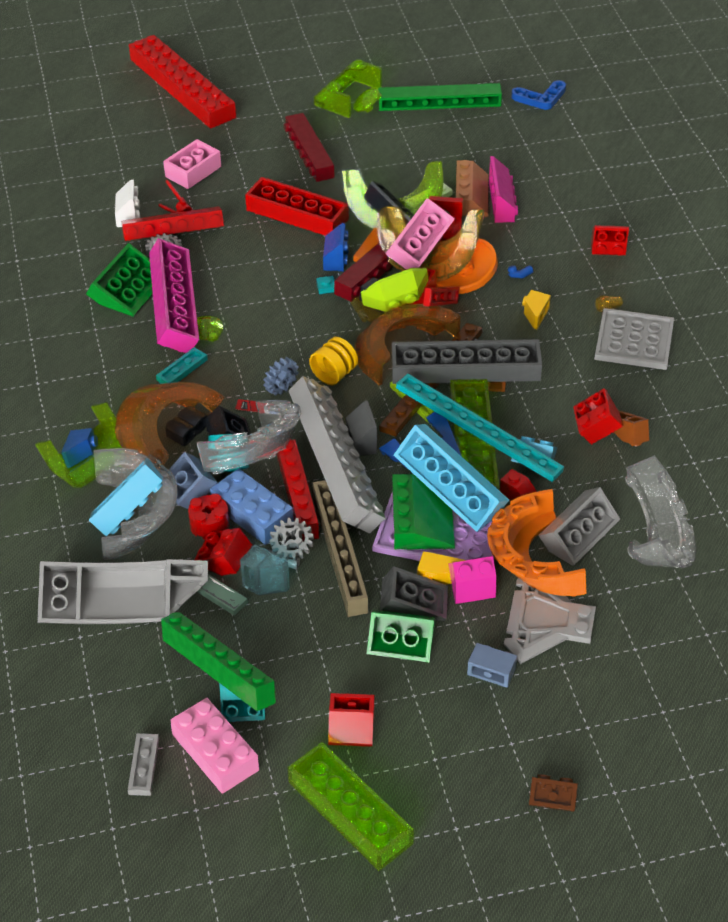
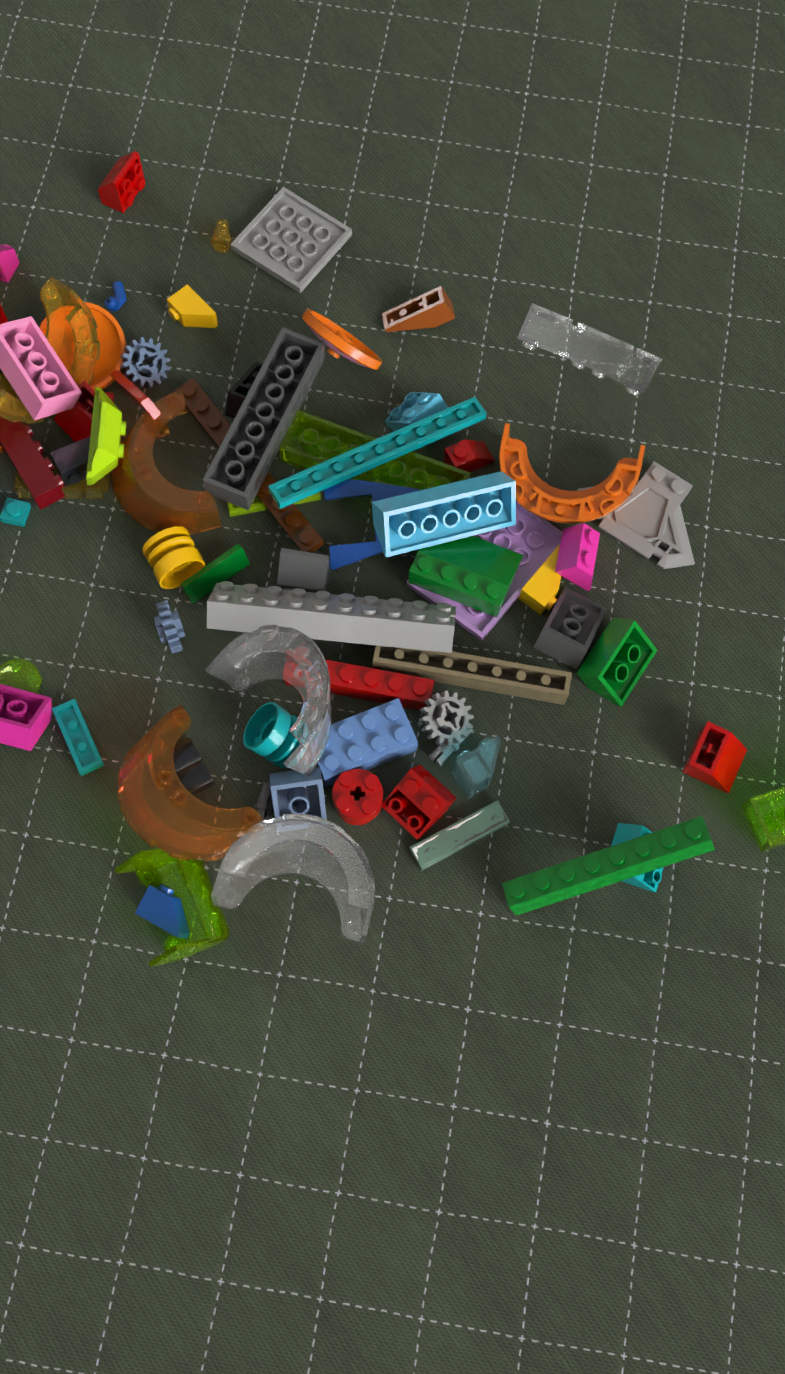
camera: 70 degrees left, 25 degrees up
(116, 590) = (428, 946): light grey slope -> none
(126, 498) = (297, 882): medium azure slope -> none
(143, 764) = (688, 996): light grey plate -> none
(214, 745) = (694, 910): bright pink brick -> none
(225, 422) = (221, 722): black slope -> none
(246, 405) = (184, 678): red sticker -> none
(341, 390) = (215, 572): none -> green tile
(477, 292) = (141, 354): none -> sand blue gear
(492, 665) = (692, 591): sand blue brick -> none
(558, 379) = (340, 341): none -> orange dish
(580, 526) = (541, 424): light grey slope -> none
(597, 416) = (405, 330): red slope -> none

